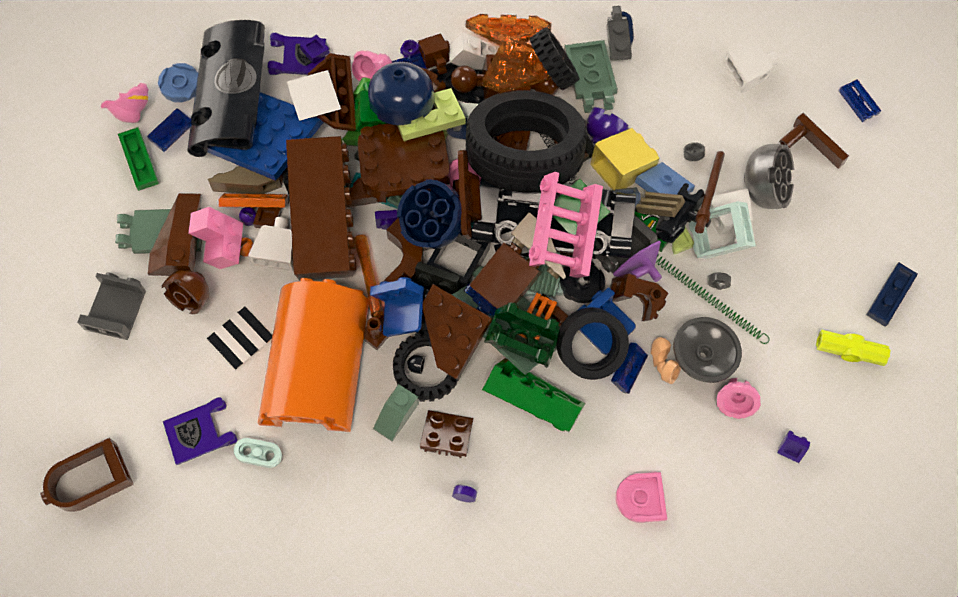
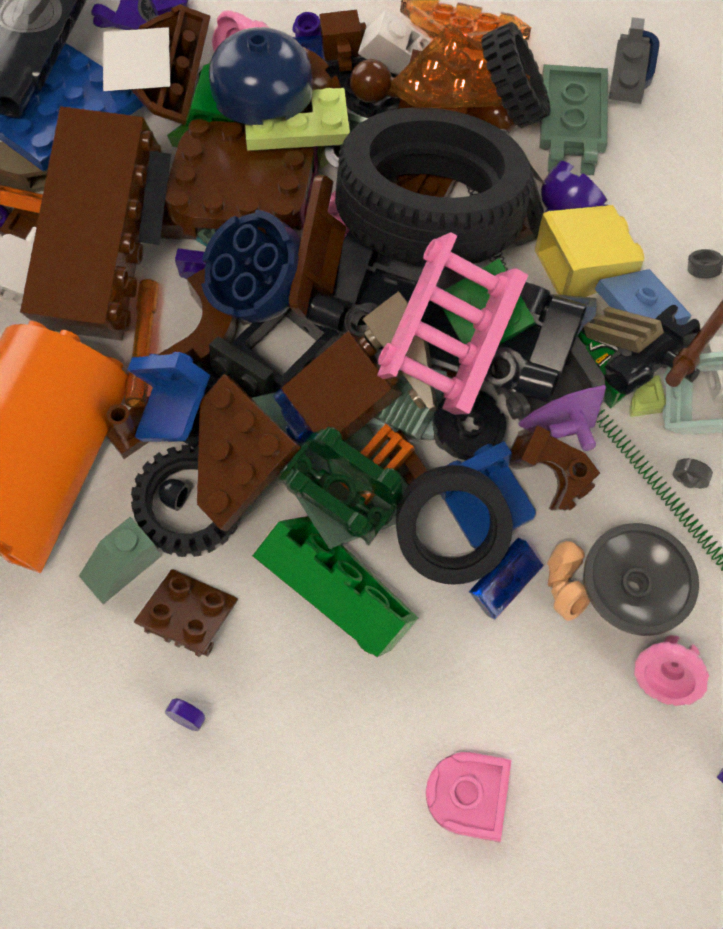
camera: 20 degrees right, 0 degrees up
(356, 183) = (154, 197): none -> black sticker

